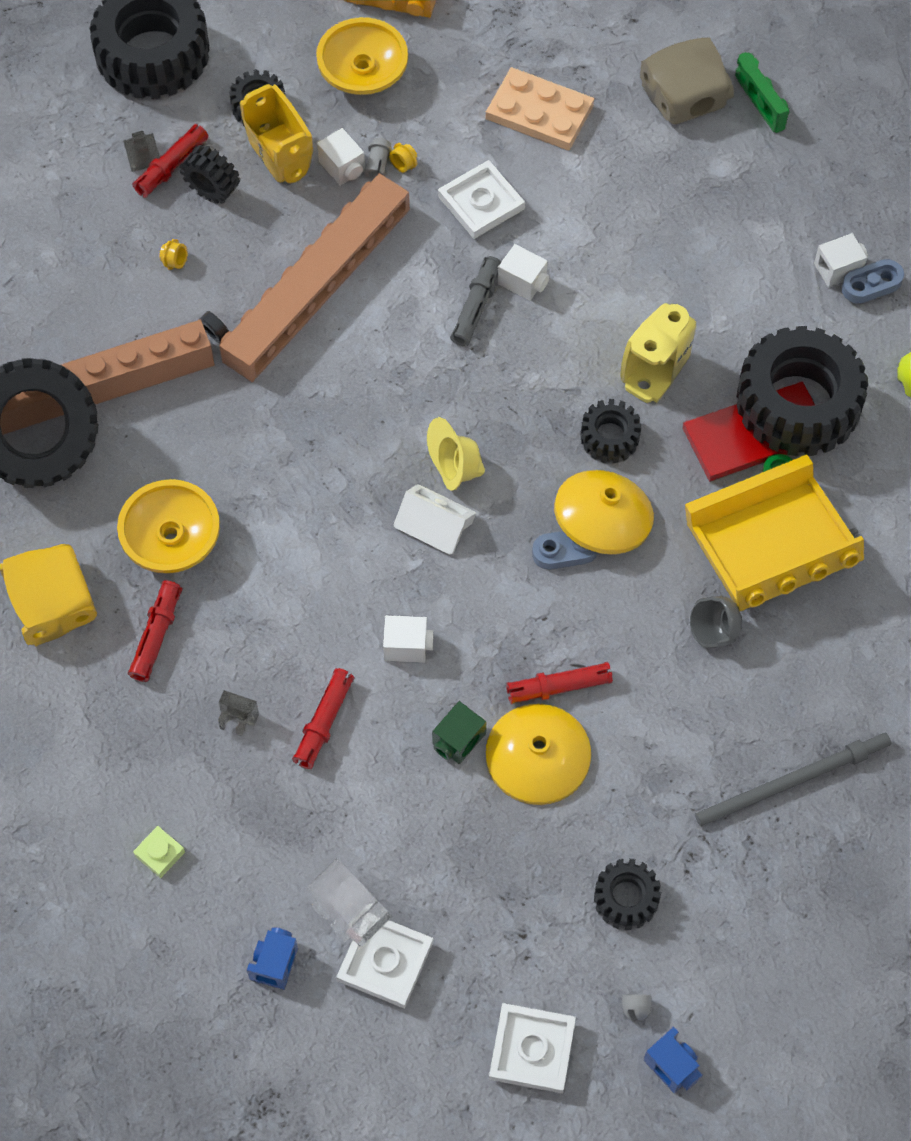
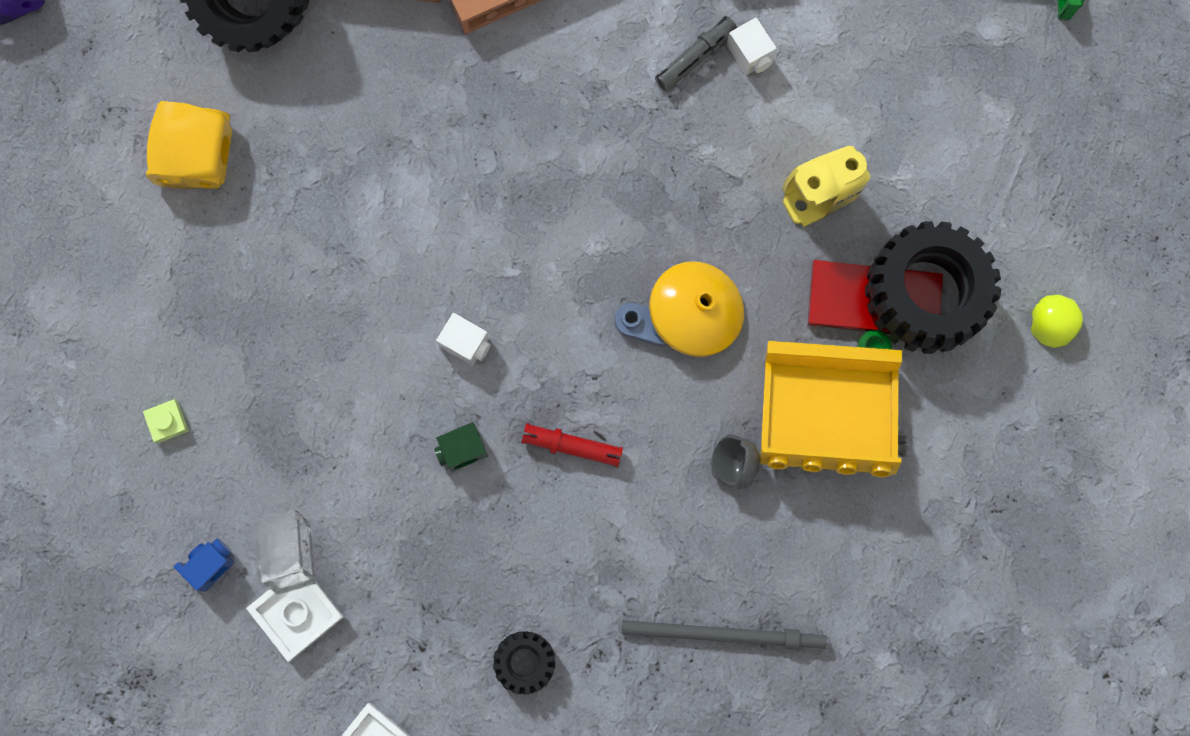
camera: 25 degrees right, 15 degrees up
(159, 619) = (265, 221): red pin -> none
(163, 510) = (305, 122): yellow dish -> none
(239, 709) = (290, 331): clear smoke tile -> none
(317, 731) = (357, 375): red pin -> none
(433, 518) = (548, 239): white panel -> none
(453, 455) = (596, 193): light yellow piece -> none
(534, 773) = (526, 521): yellow dish -> none
(610, 447) = (758, 222): black tyre -> none
(839, 258) = (1045, 174): white brick -> none
(870, 281) = (1061, 209): sand blue plate -> none

